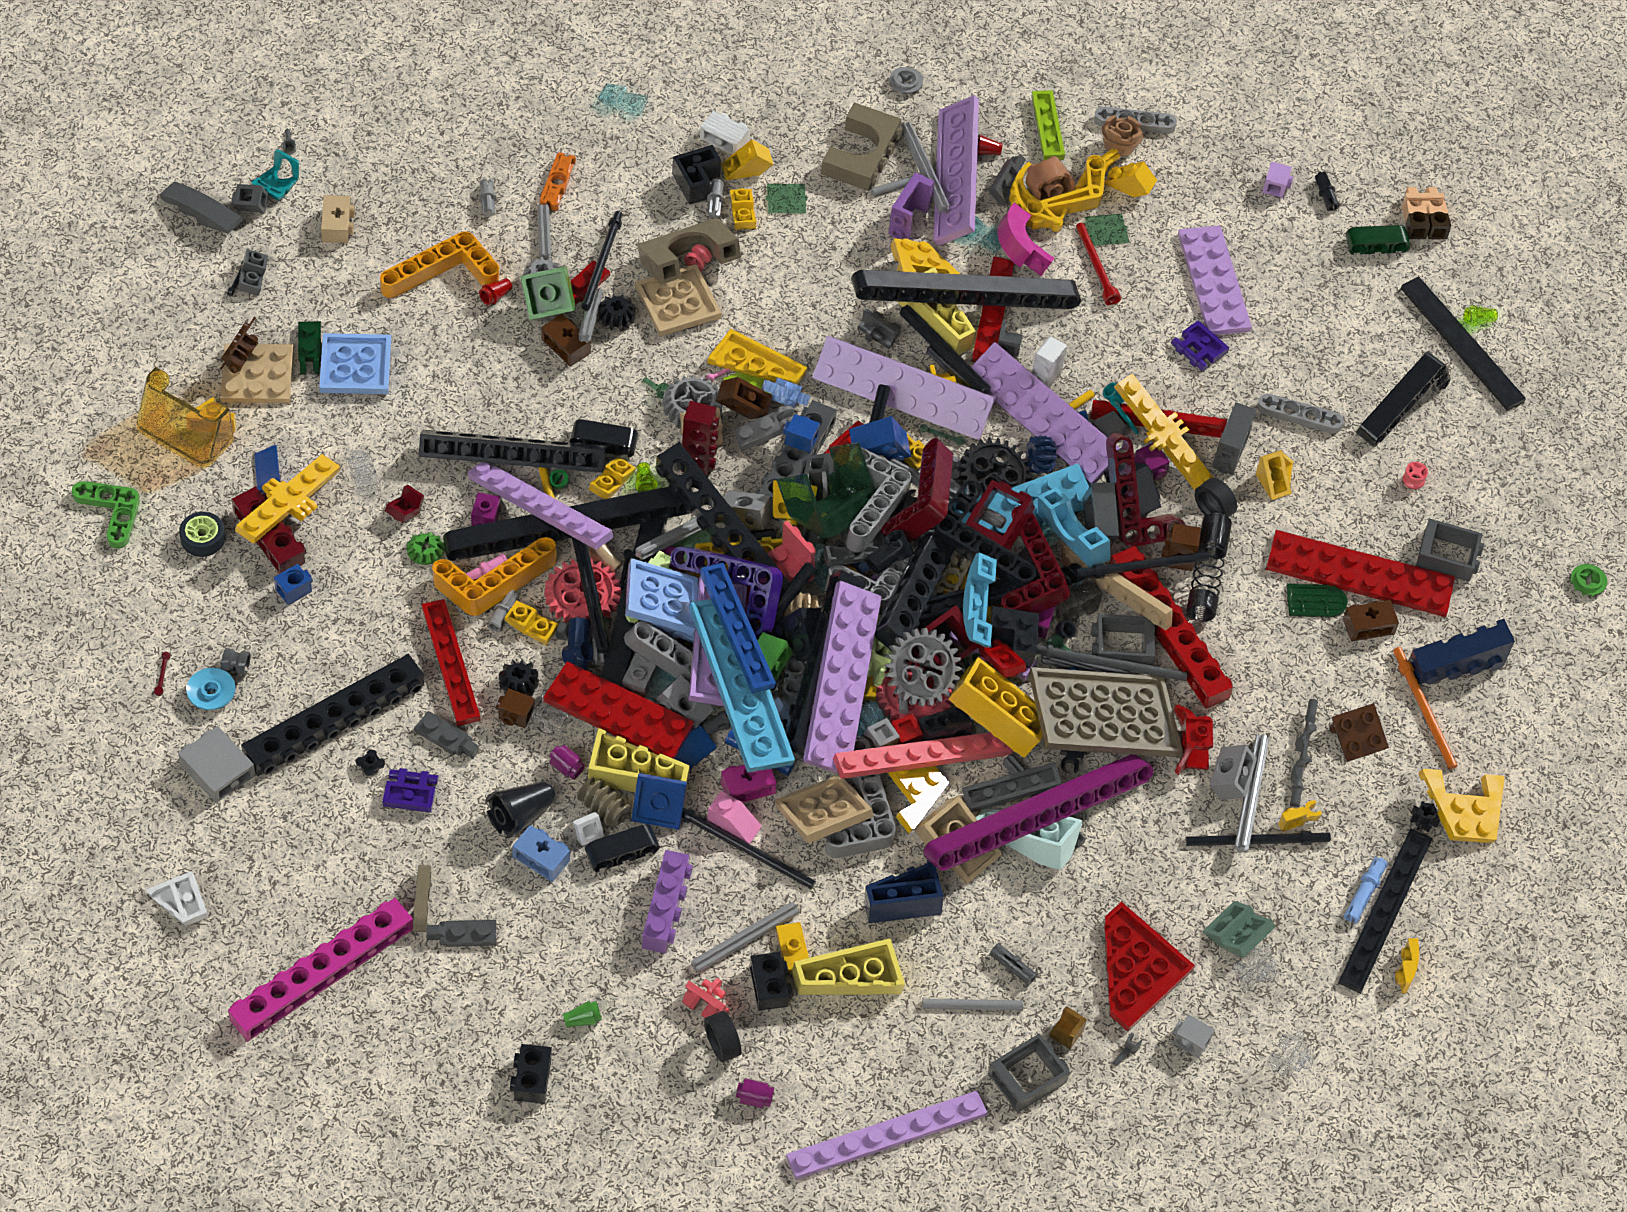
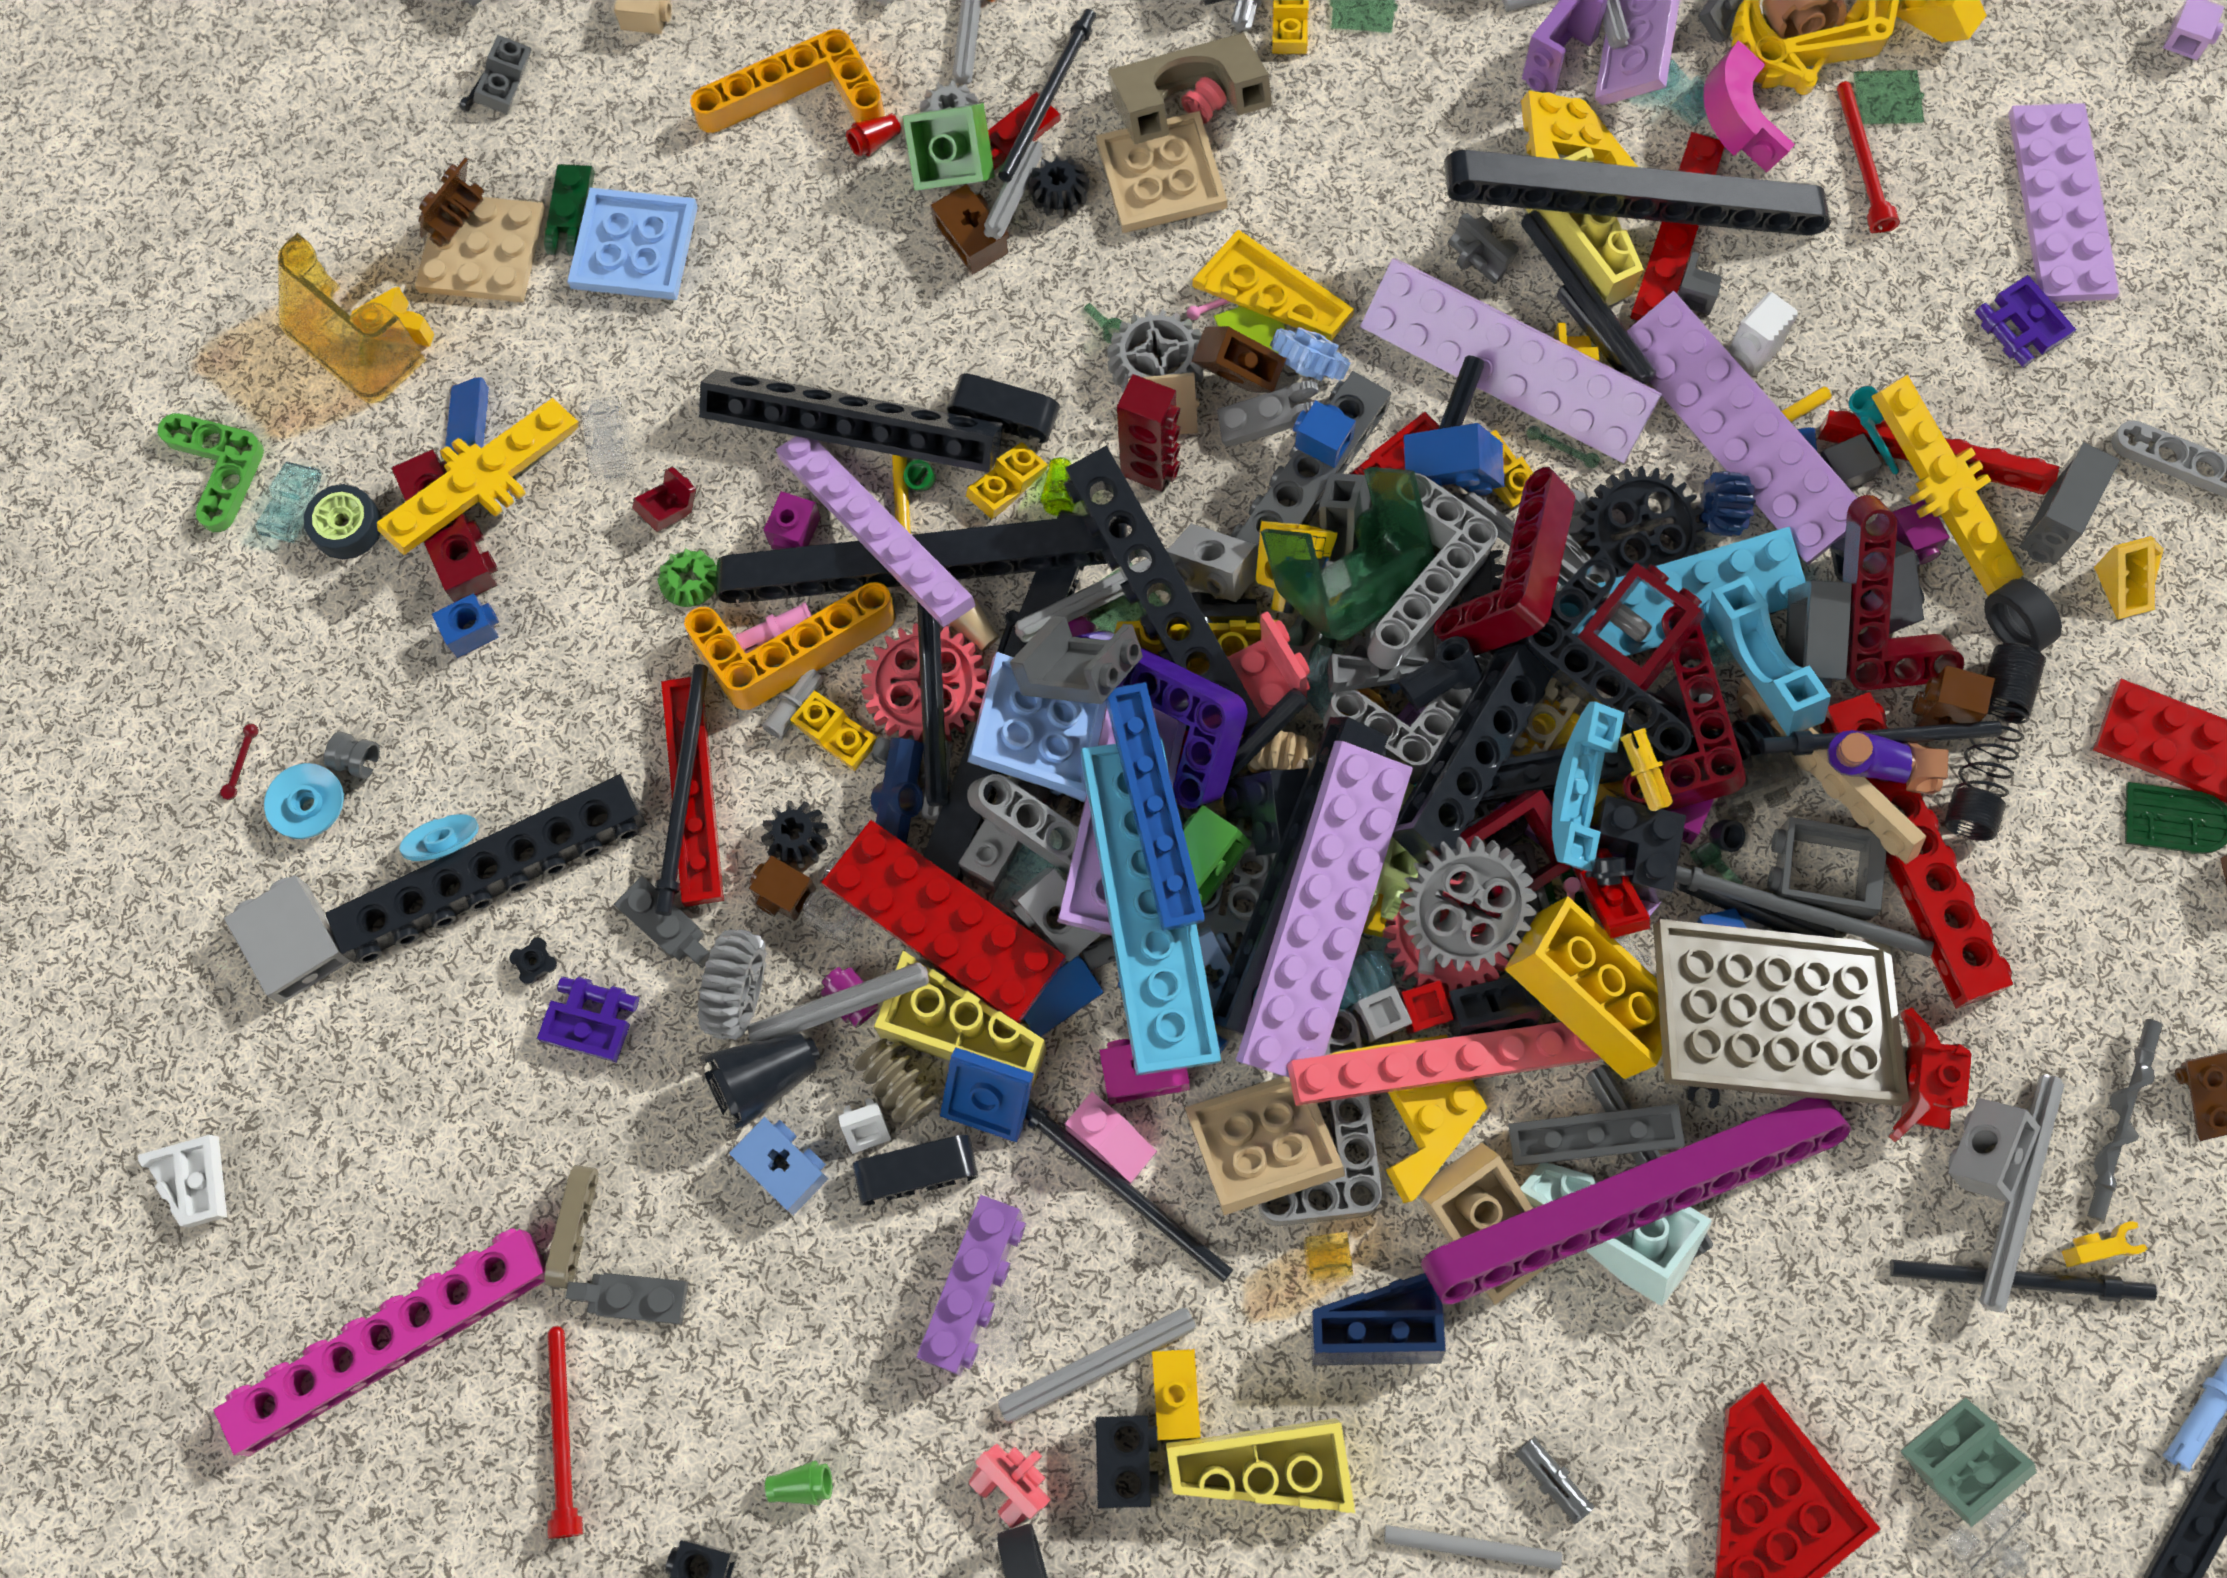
camera: 20 degrees right, 15 degrees up
(163, 526) = (290, 496): none -> clear light blue slope
(301, 700) = (439, 838): none -> medium azure dish
(446, 1046) = (564, 1518): none -> red piece
(447, 710) = (667, 883): none -> black bar
(498, 758) = (731, 984): none -> light grey gear
(567, 759) = (840, 1003): none -> light grey axle
(667, 561) = (1074, 667): none -> dark grey panel
(869, 865) = (1328, 1258): none -> clear yellow brick
(999, 643) = (1608, 870): none -> black plate
(1013, 589) = (1647, 770): none -> yellow axle
(1136, 572) = (1880, 758): none -> piece

